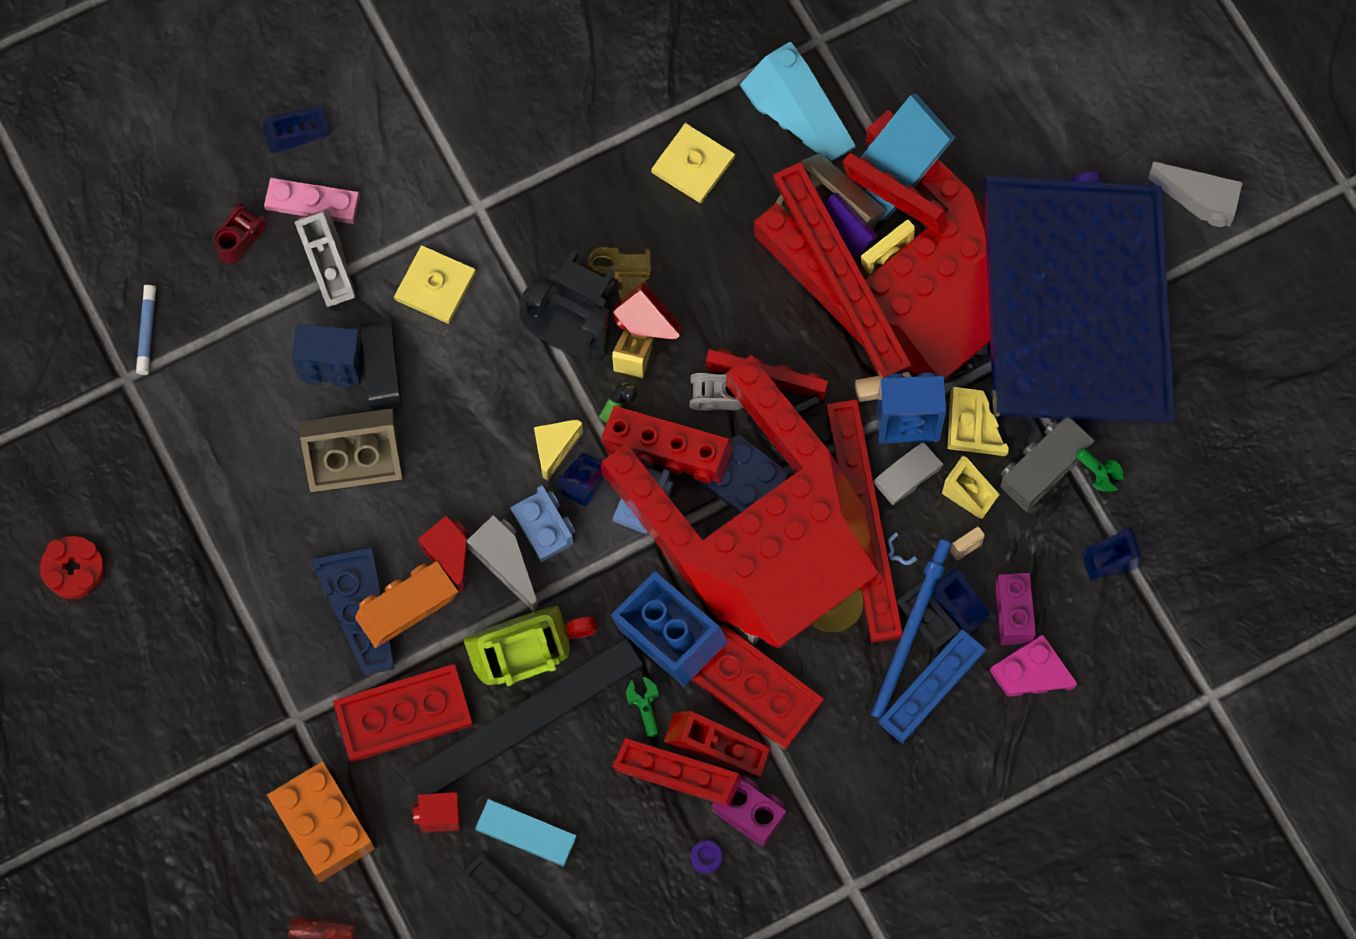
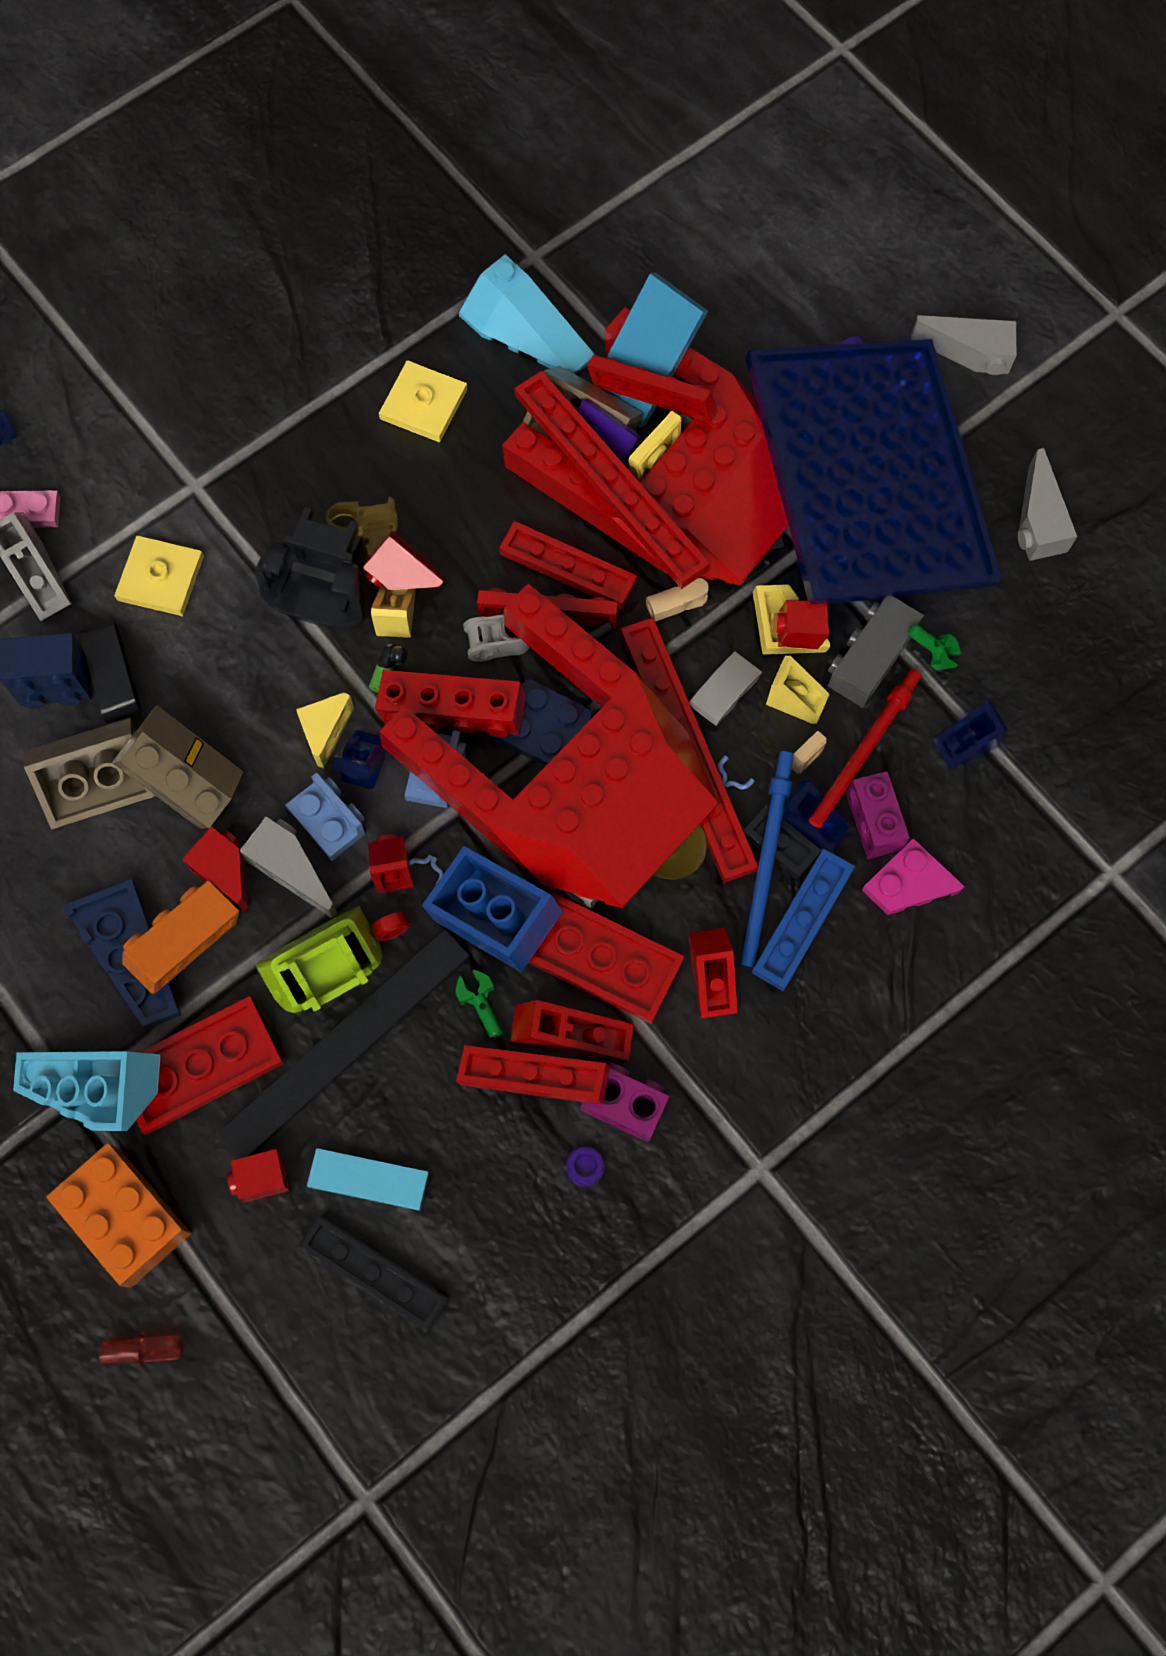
camera: 15 degrees left, 0 degrees up
(317, 714) = (93, 1087): none -> medium azure wedge
(428, 461) = (179, 768): none -> dark tan slope
(590, 574) = (390, 863): none -> red slope
(622, 576) = (433, 864): none -> medium blue piece
(792, 337) = (567, 564): none -> red plate
(845, 717) = (713, 972): none -> red slope
(910, 408) = (717, 613): blue brick -> none
(983, 430) = (801, 624): none -> red brick
(1056, 511) = (897, 700): none -> red bar
(1226, 374) = (1044, 520): none -> light grey slope

